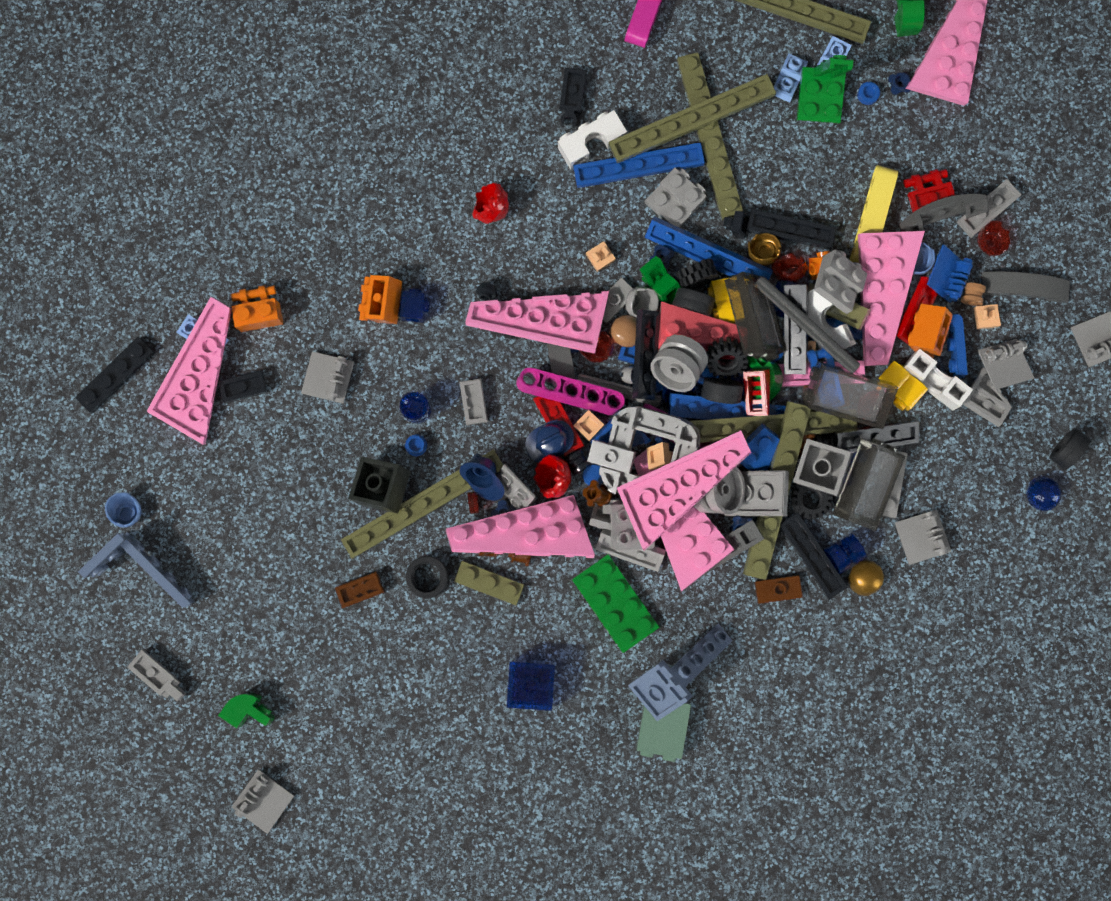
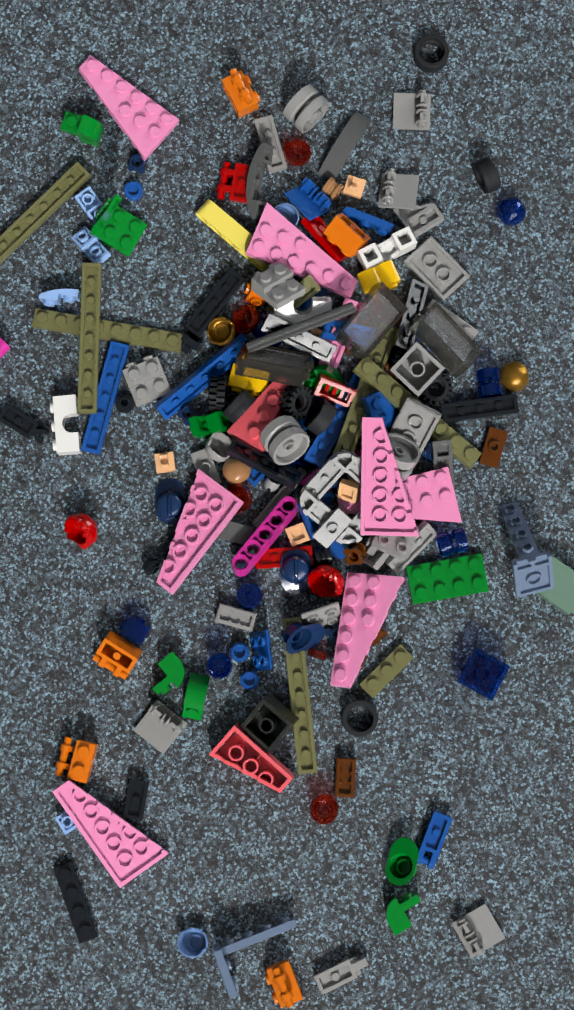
camera: 70 degrees left, 0 degrees up
(121, 622) = (284, 983): none -> orange brick
(297, 688) = (402, 861): none -> green piece
(316, 582) = (323, 809): none -> clear red hair
(334, 480) = (250, 758): none -> coral wedge
(336, 711) = (434, 838): none -> blue plate
(374, 397) = (195, 696): none -> green brick
(389, 365) = (175, 673): none -> green brick
(440, 422) = (239, 652): none -> blue plate
(441, 447) = (262, 656): none -> blue hinge
(501, 404) = (249, 596): none -> clear blue wheel
(563, 279) = (169, 500): none -> dark blue piece
(642, 193) = (129, 407): none -> black plate
(649, 585) = (445, 544): none -> clear blue wheel
(719, 66) = (54, 297): none -> light blue slope
(923, 537) = (502, 318): light grey hinge -> none
(941, 443) = (436, 268): none -> light grey tile
(1028, 151) = (240, 93): none -> orange brick
(1046, 225) = (306, 108): none -> light grey wheel

